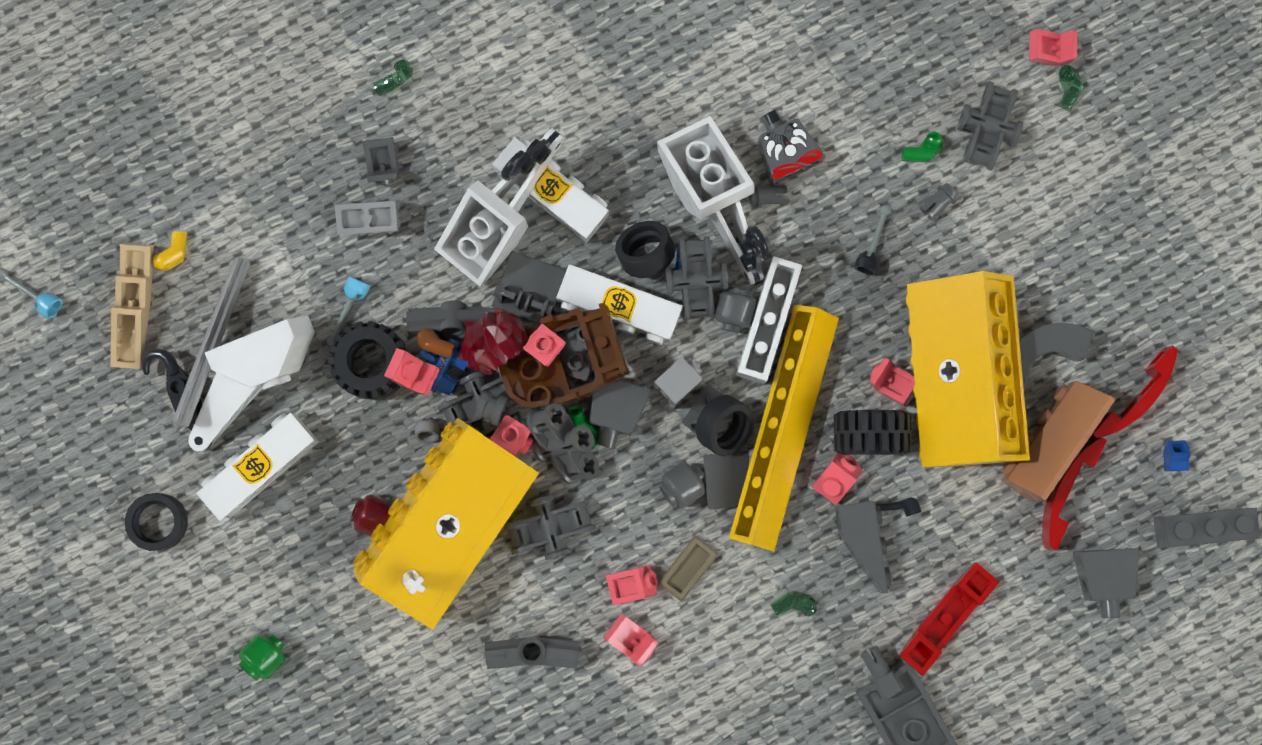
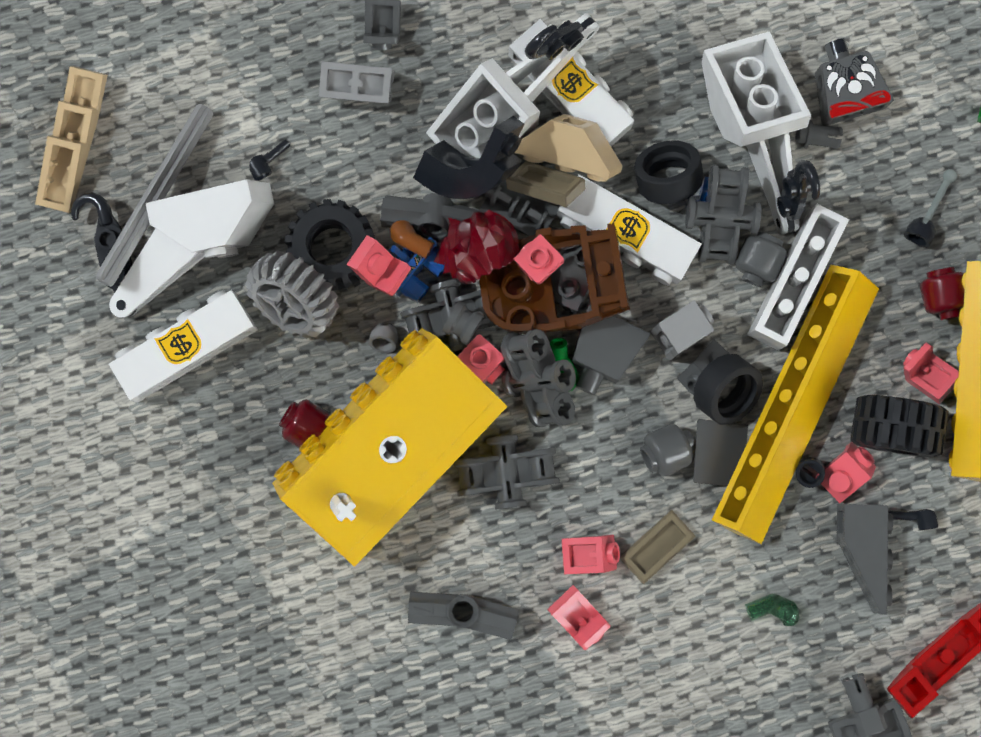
camera: 10 degrees right, 0 degrees up
(138, 506) = (30, 383): black tyre -> none
(174, 254) = (126, 90): yellow arm -> none
(262, 656) = (151, 564): green head -> none
(296, 300) = (259, 164): none -> black hand
(342, 408) = (292, 294): none -> light grey gear
(355, 291) = (328, 165): hinge -> none
(473, 283) = (463, 177): none -> black arch
(542, 277) = (546, 184): none -> dark tan tile
(559, 241) = (572, 146): none -> tan slope
(803, 488) = (805, 477): none -> black hinge
(893, 312) = (943, 293): none -> dark red head

